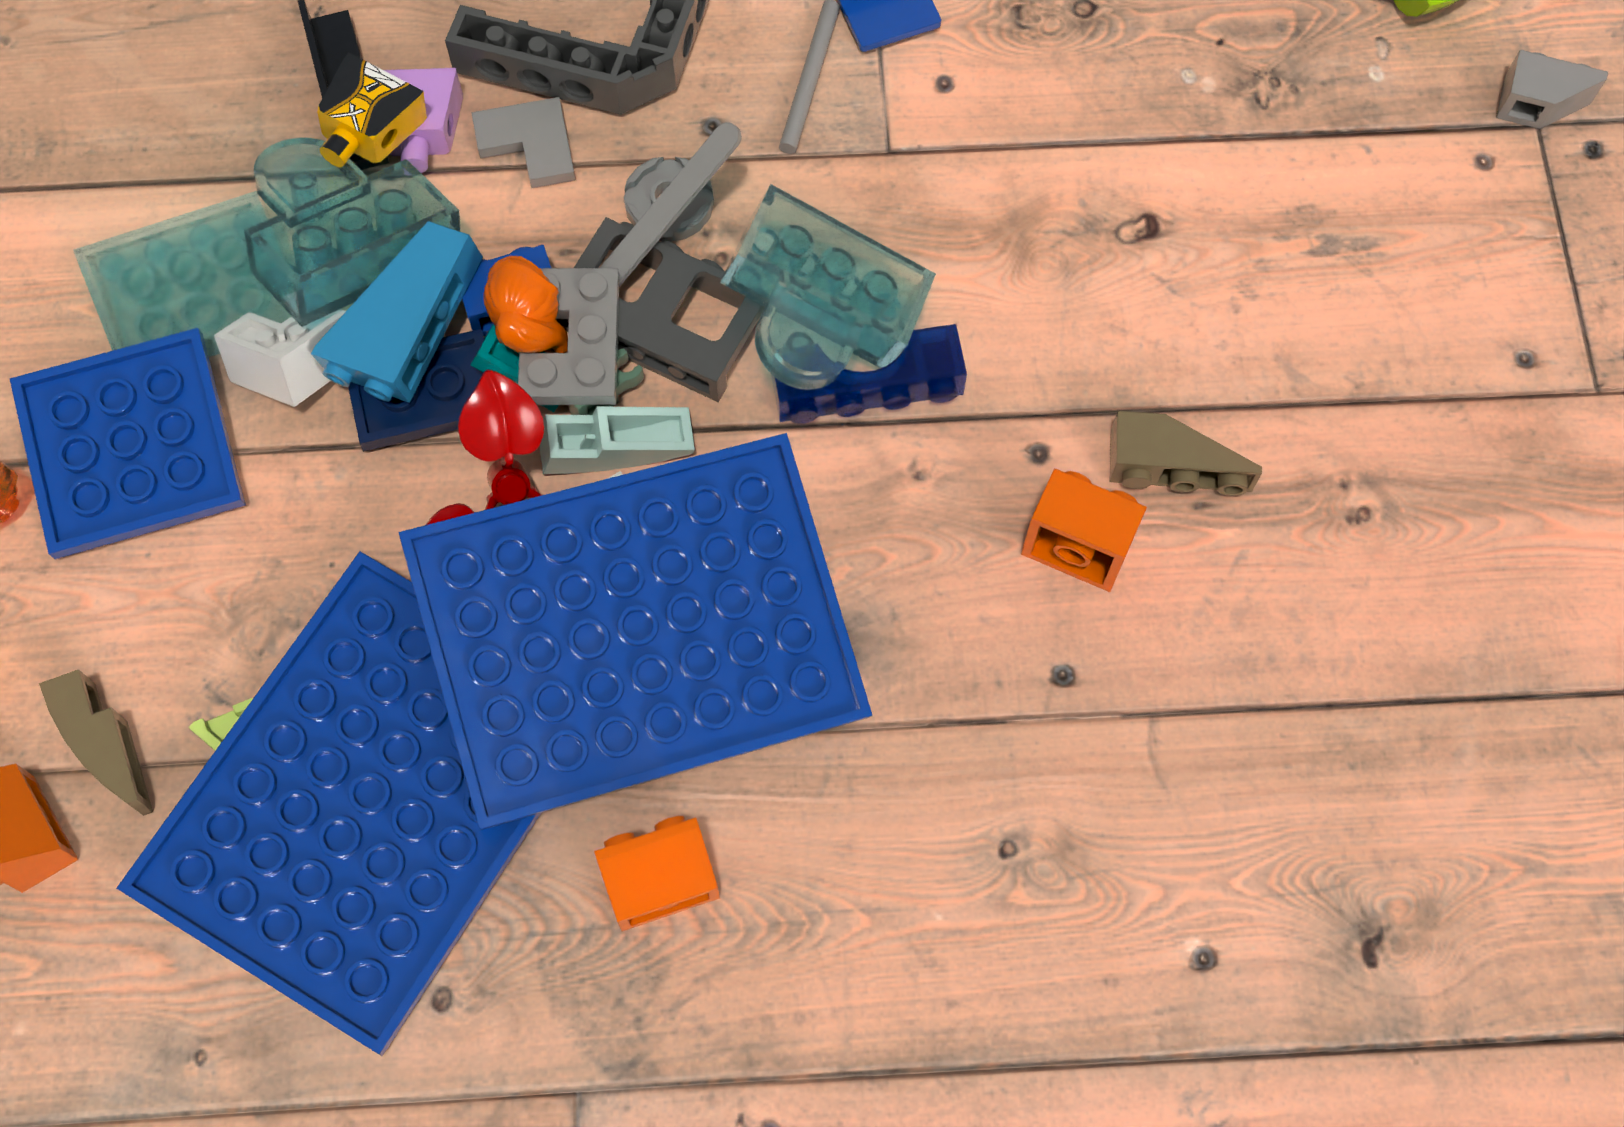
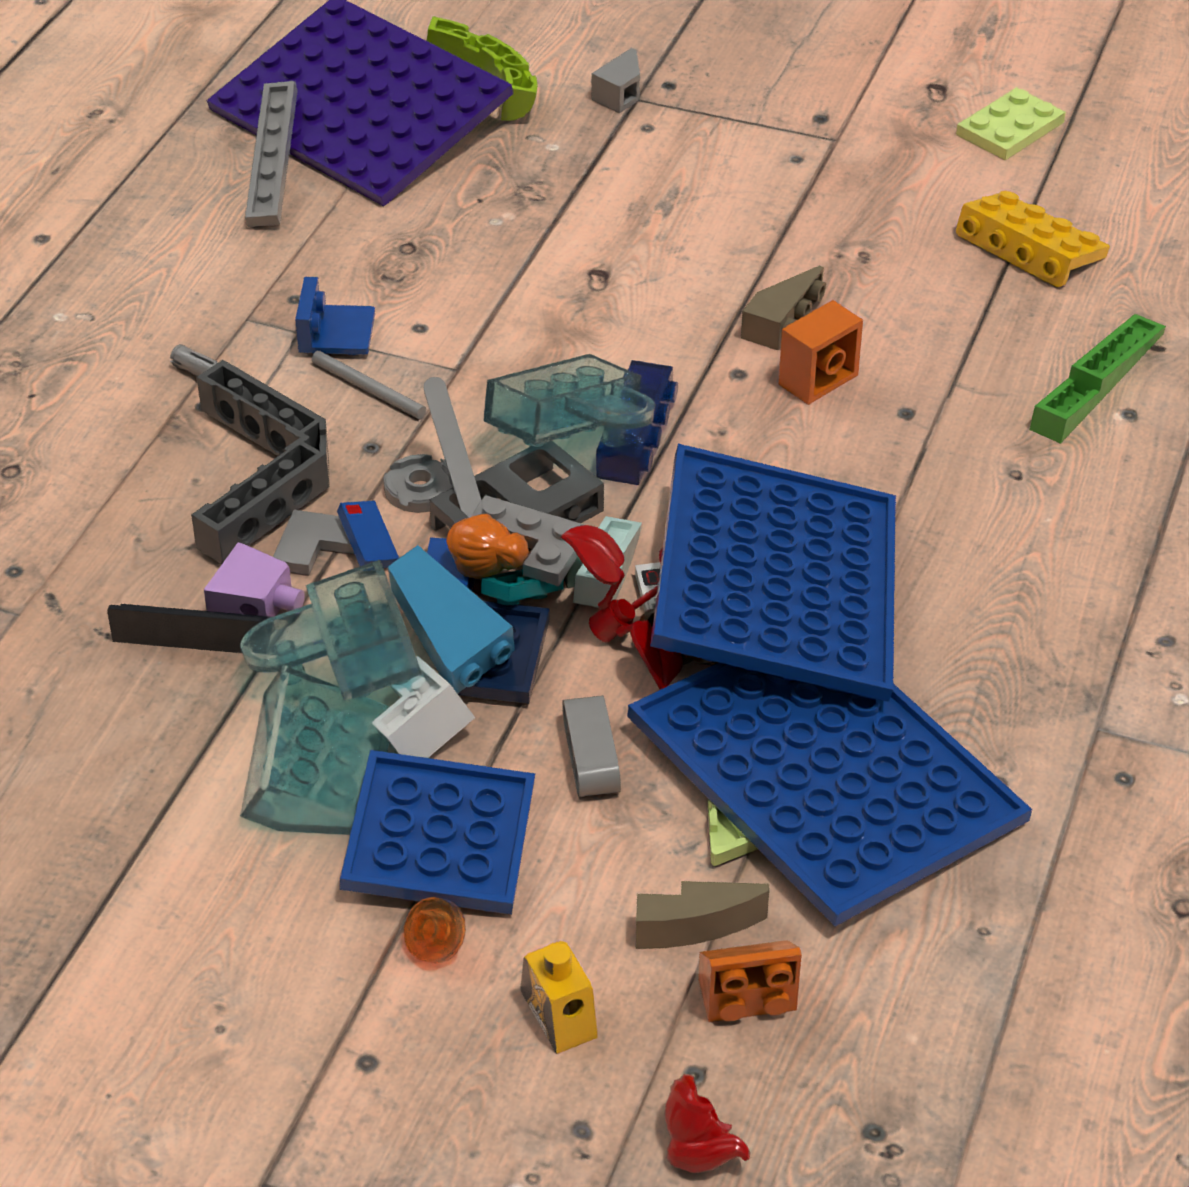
camera: 65 degrees left, 25 degrees down
(310, 538) = (591, 746): none -> light grey beam
(367, 112) = (254, 584): torso -> none
(543, 183) = (367, 533): none -> blue tile
(657, 872) = (964, 622): orange slope -> none
(1258, 893) = (1094, 378): none -> bright green slope
(1513, 712) = (1028, 237): none -> yellow bracket

